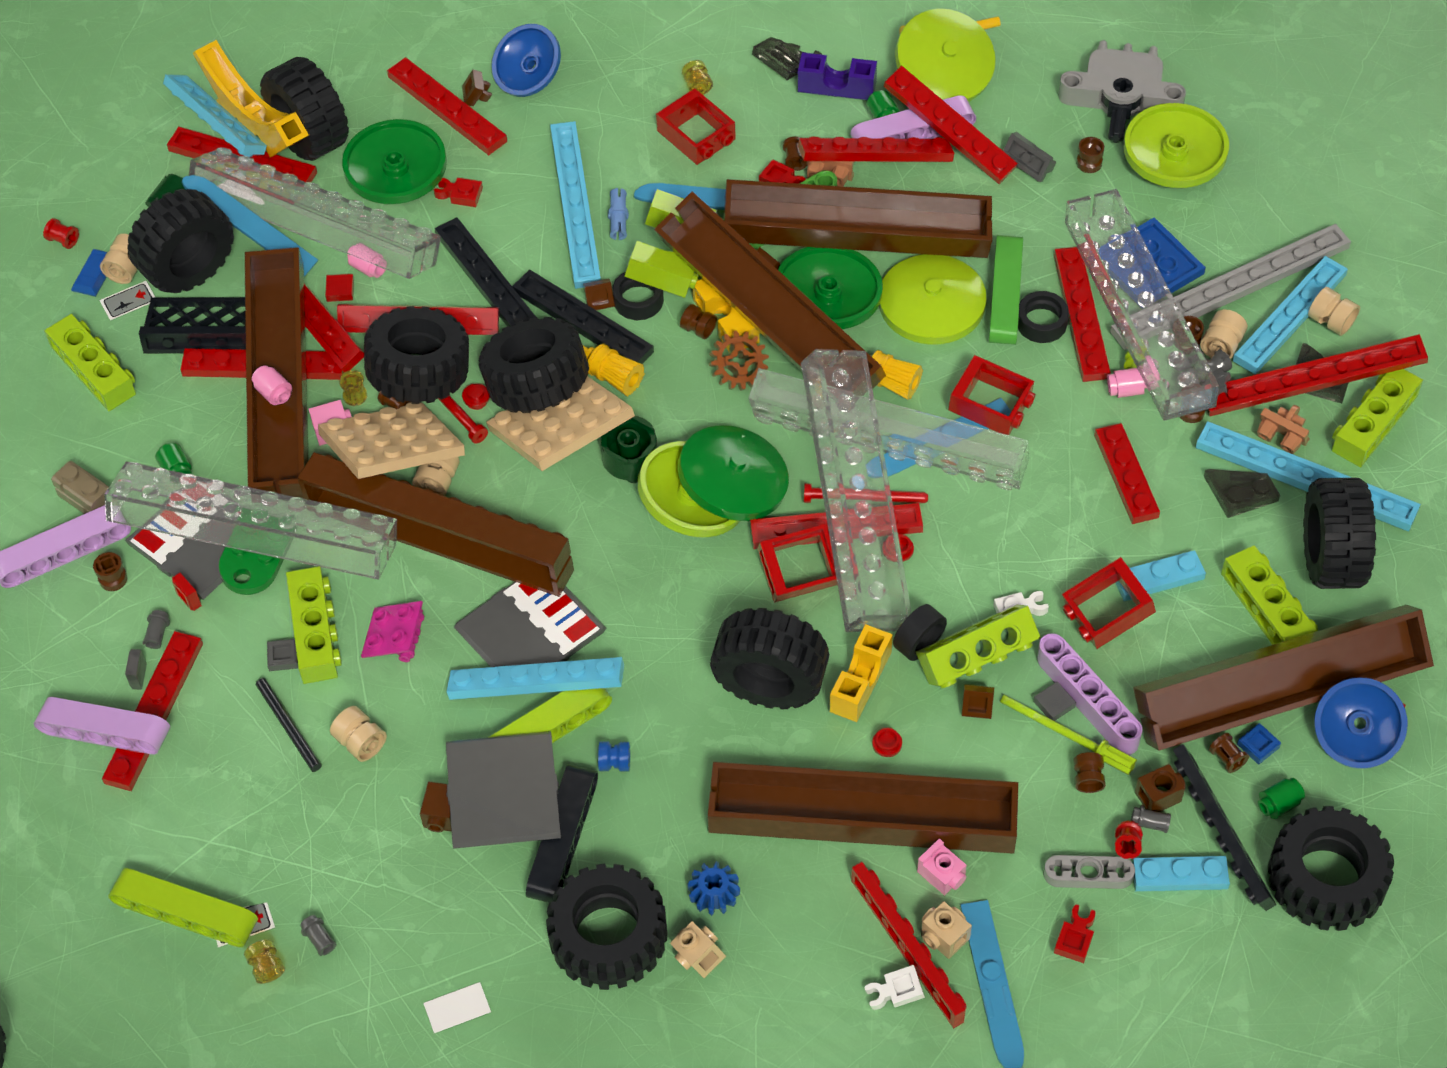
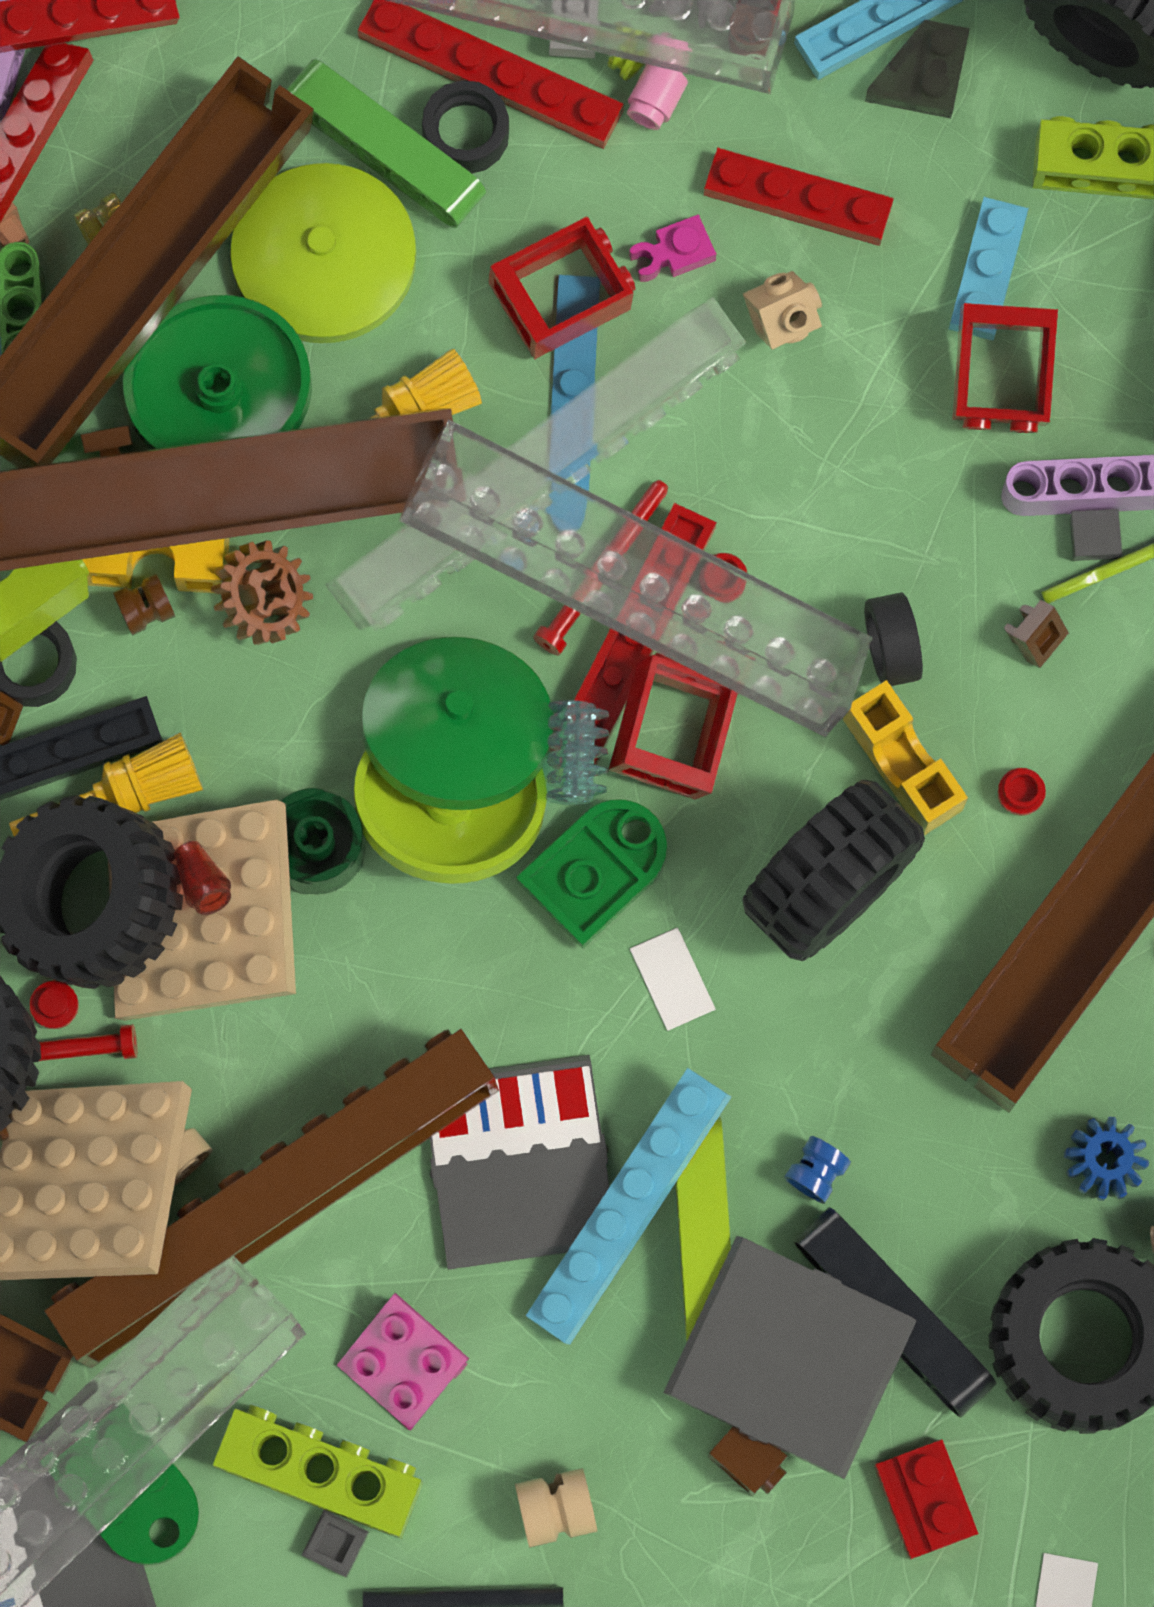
camera: 60 degrees left, 20 degrees up
(472, 907) = (926, 1499): none -> red plate
(567, 401) = (202, 880): none -> clear red cone
(672, 643) = (672, 979): none -> white sticker
(704, 575) = (594, 870): none -> green plate
(752, 523) = (575, 752): none -> clear light blue piece
(936, 657) = (959, 575): lime brick -> none
(1008, 601) = (920, 487): white plate -> none
(1055, 439) = (679, 246): none -> dark pink plate
(1058, 493) = (783, 309): none -> tan brick

